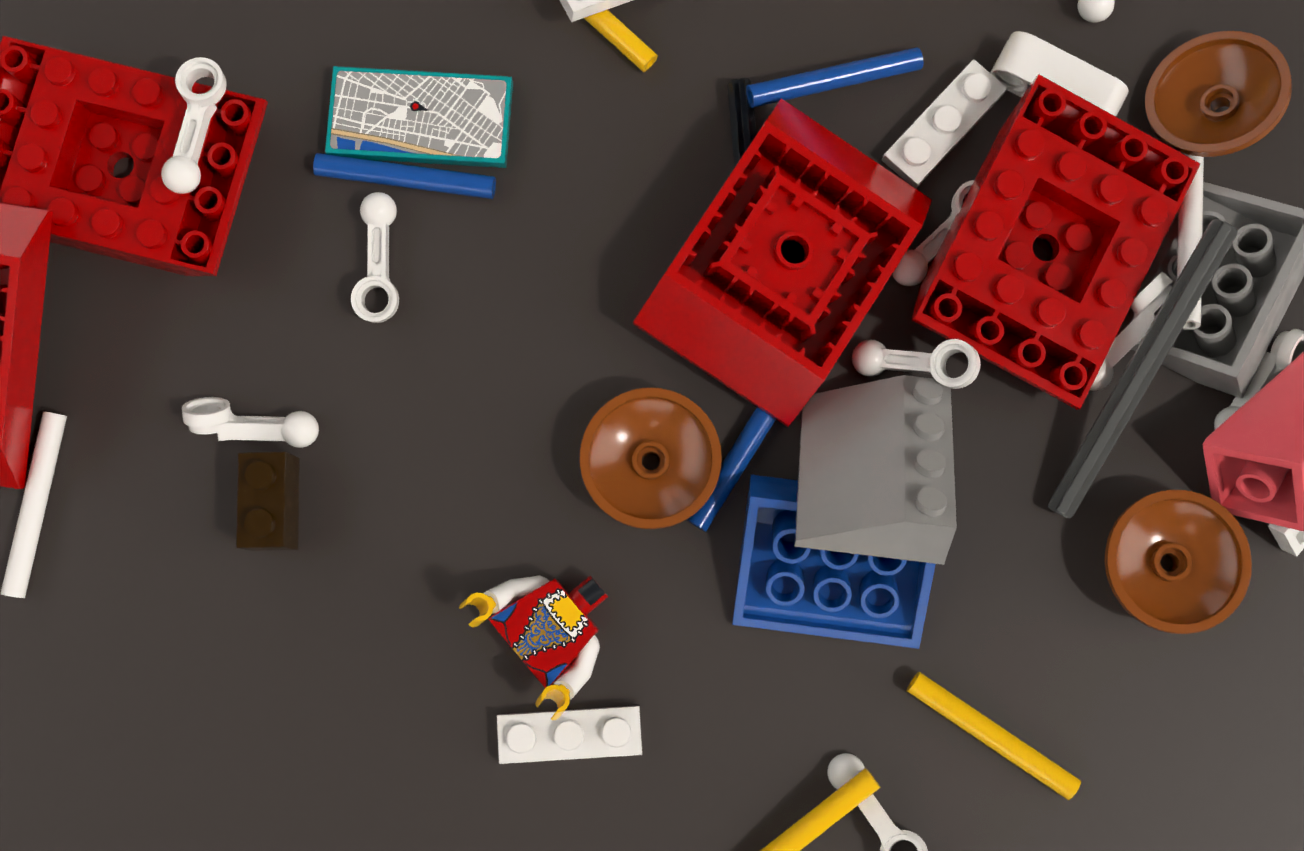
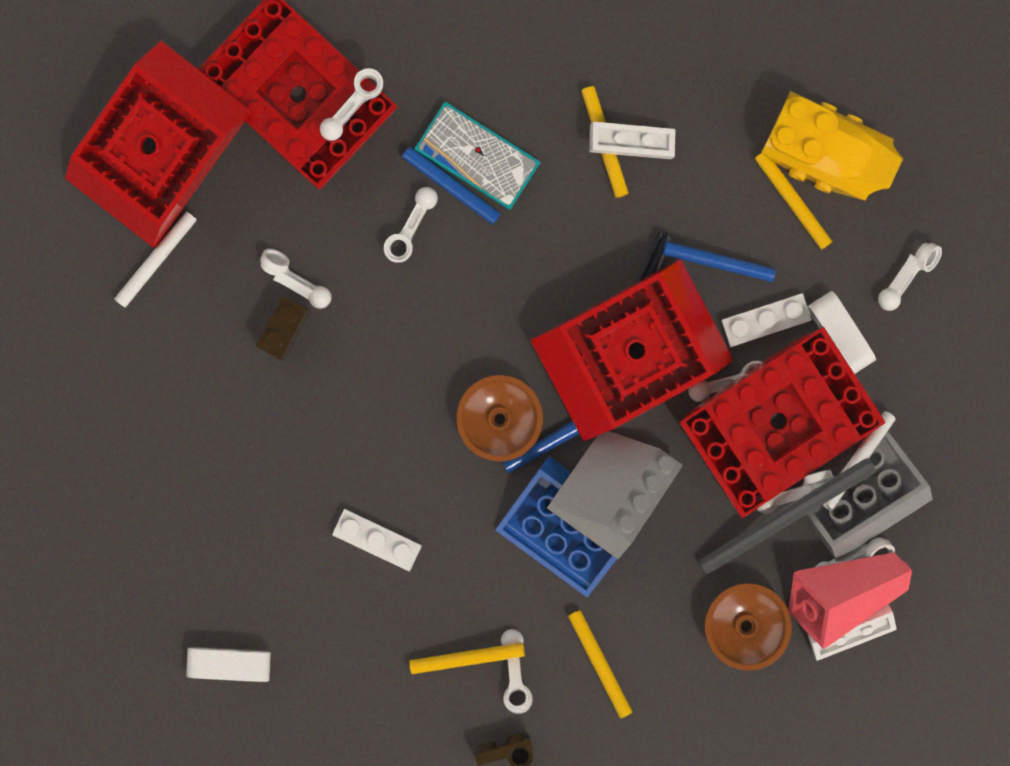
camera: 25 degrees right, 5 degrees up
(546, 630) = (395, 478): torso -> none
(873, 358) = (650, 429): white piece -> none
(1212, 73) = (920, 374): dark orange dish -> none

